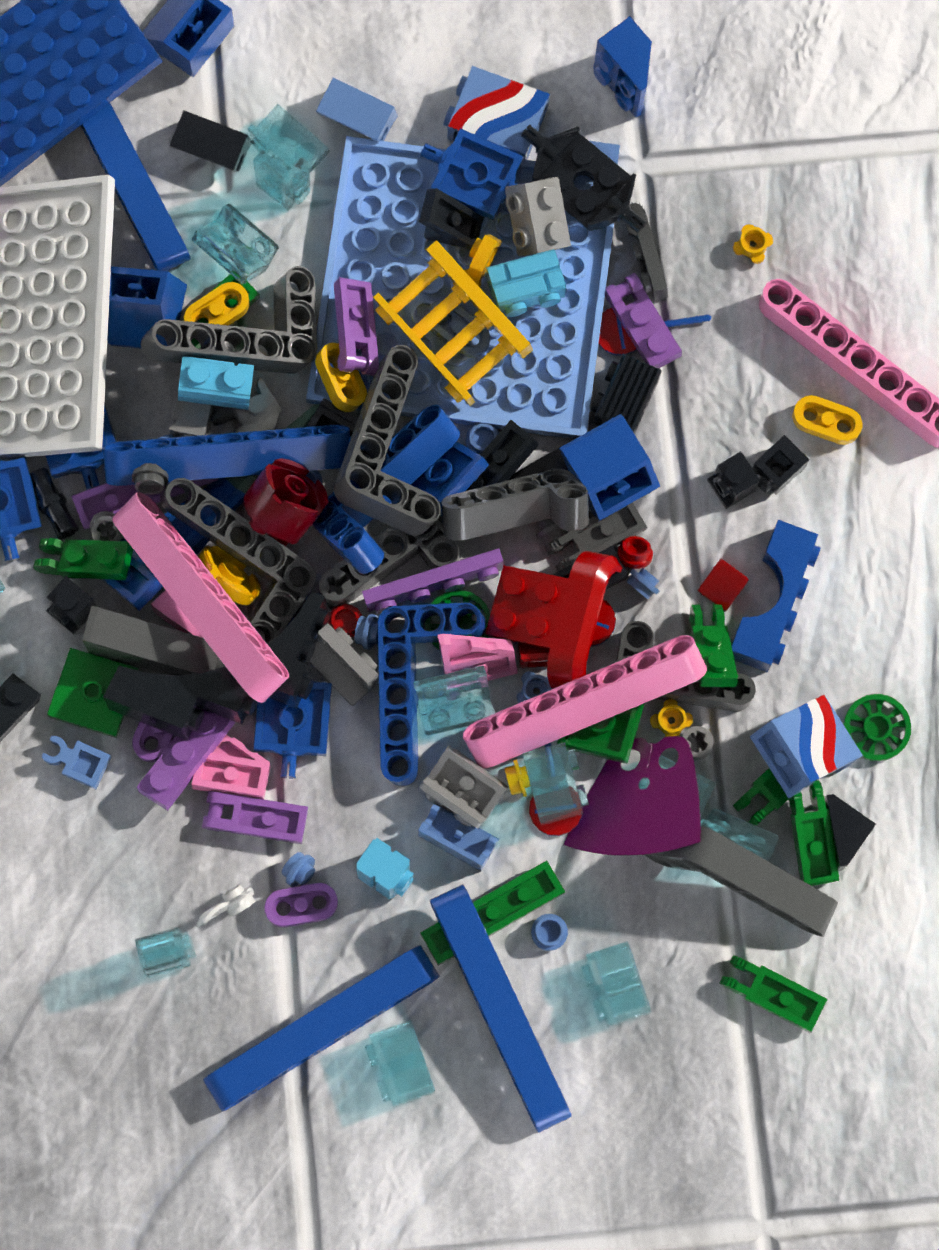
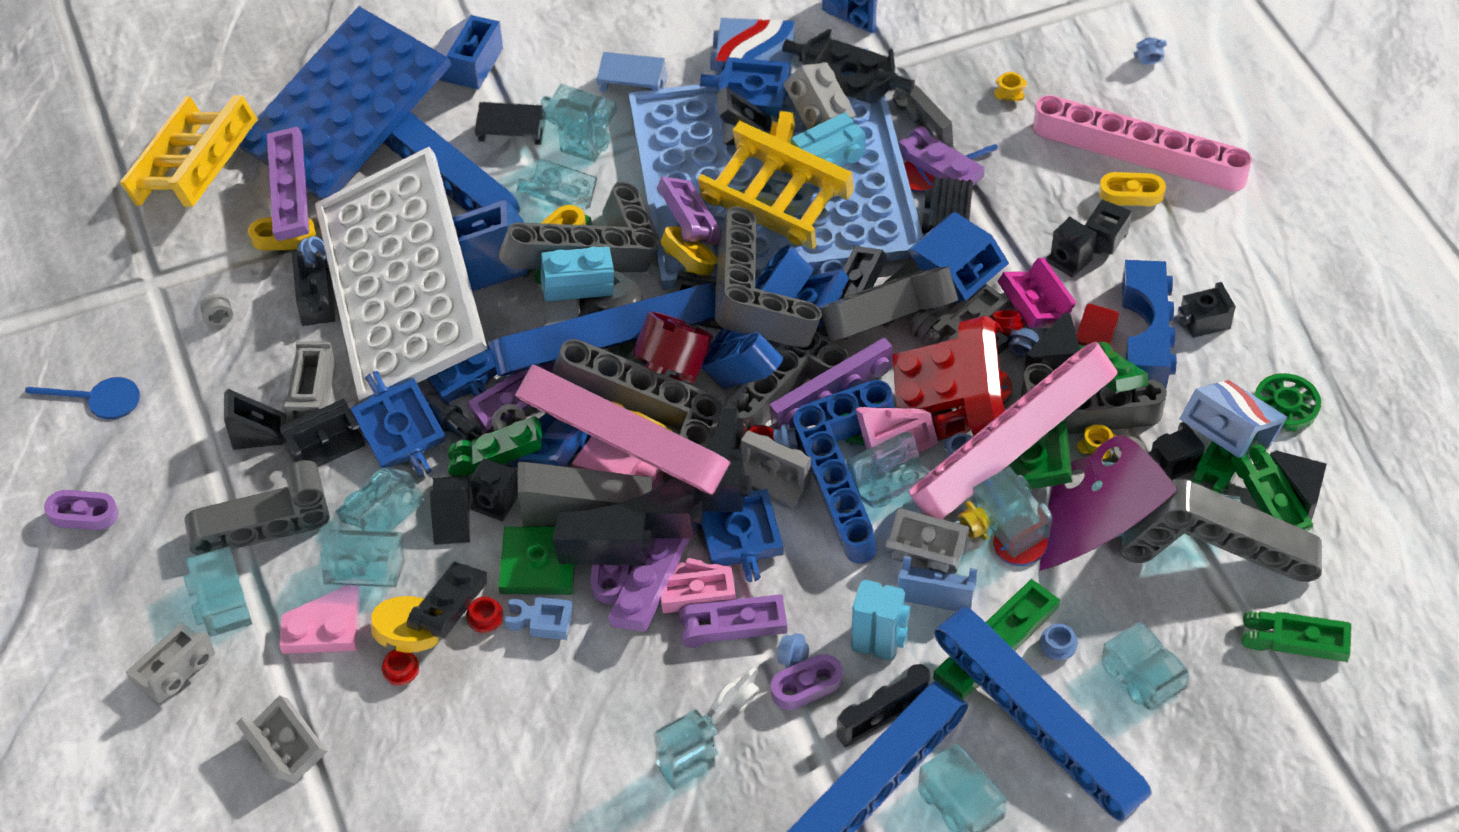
camera: 10 degrees left, 25 degrees down
(26, 609) = (450, 510): none -> black slope
(26, 740) = (484, 615): none -> red plate
(149, 479) = (541, 350): dark grey plate -> none
(364, 952) = (882, 707): none -> black plate
(669, 604) = (1055, 345): none -> black slope
(676, 530) = (1037, 294): none -> dark pink bracket
(737, 760) = (1178, 451): none -> black brick
(830, 609) = (1207, 311): none -> black brick
(920, 239) = (1150, 50): none -> medium blue plate

